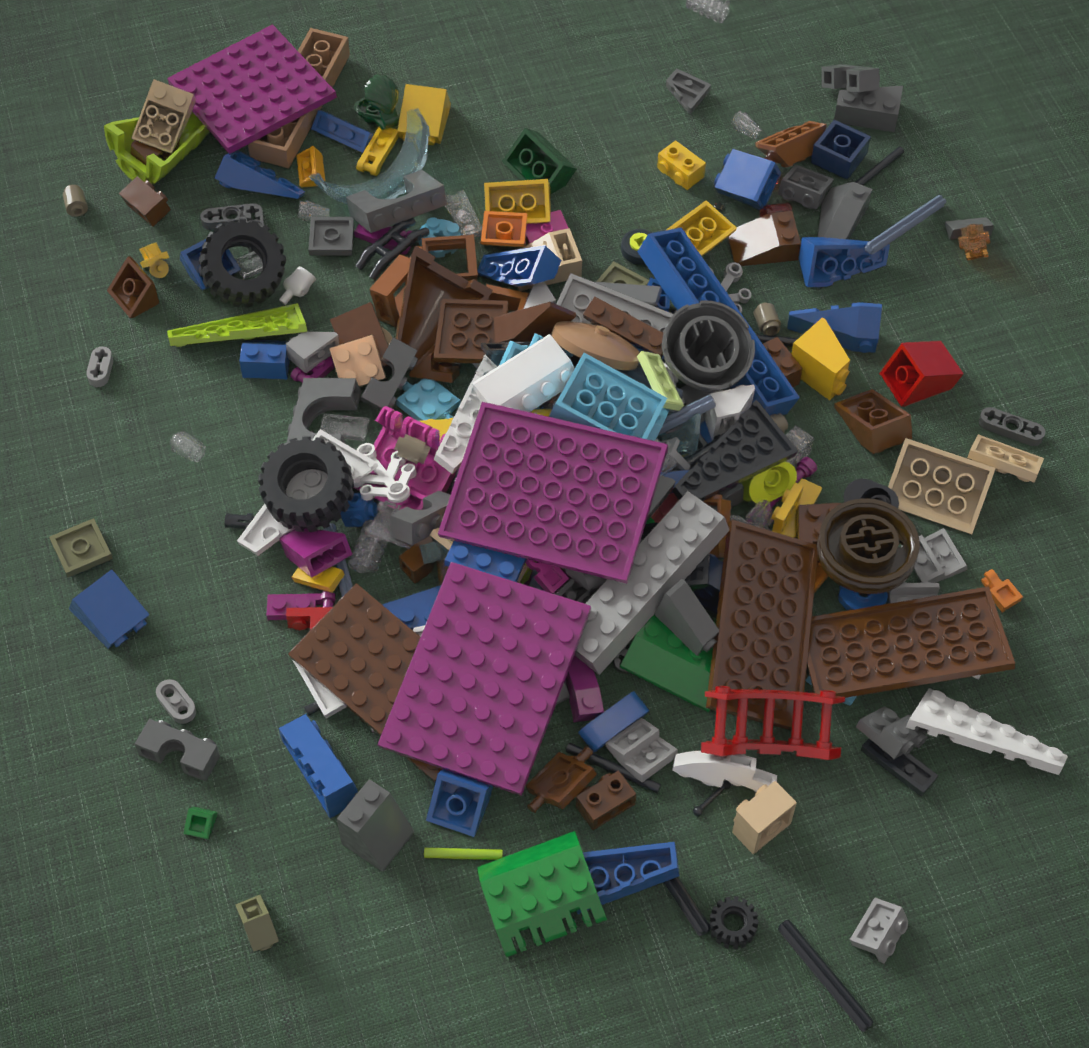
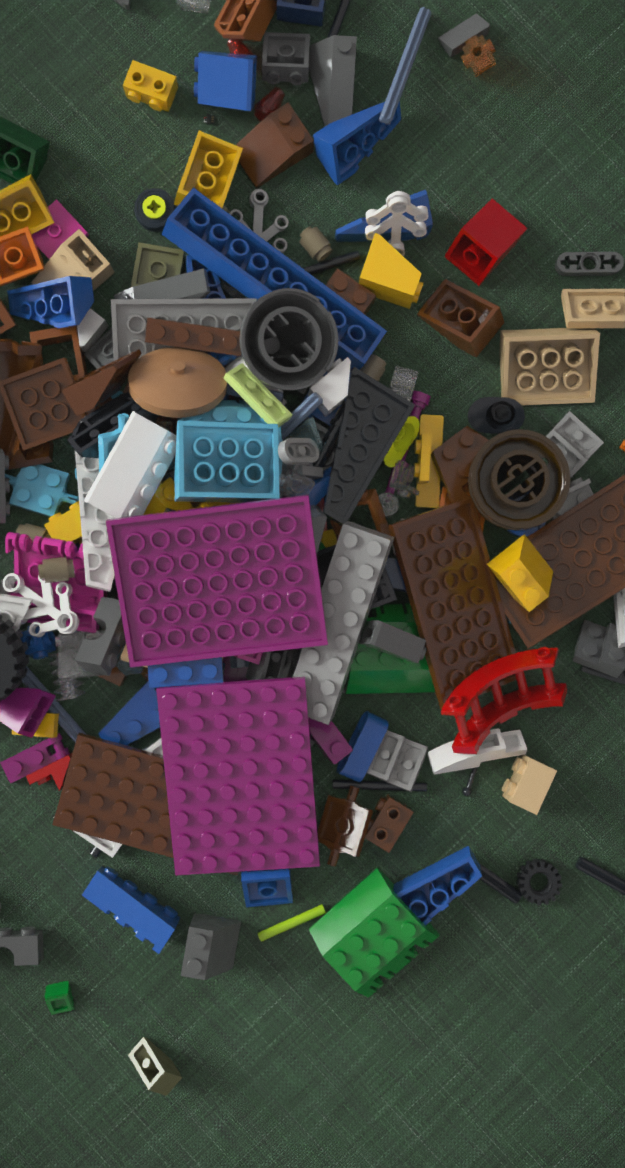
camera: 30 degrees left, 30 degrees up
(675, 429) = (298, 451): none -> light grey plate
(836, 619) = (523, 573): none -> yellow slope
(846, 314) = (397, 204): none -> white plant

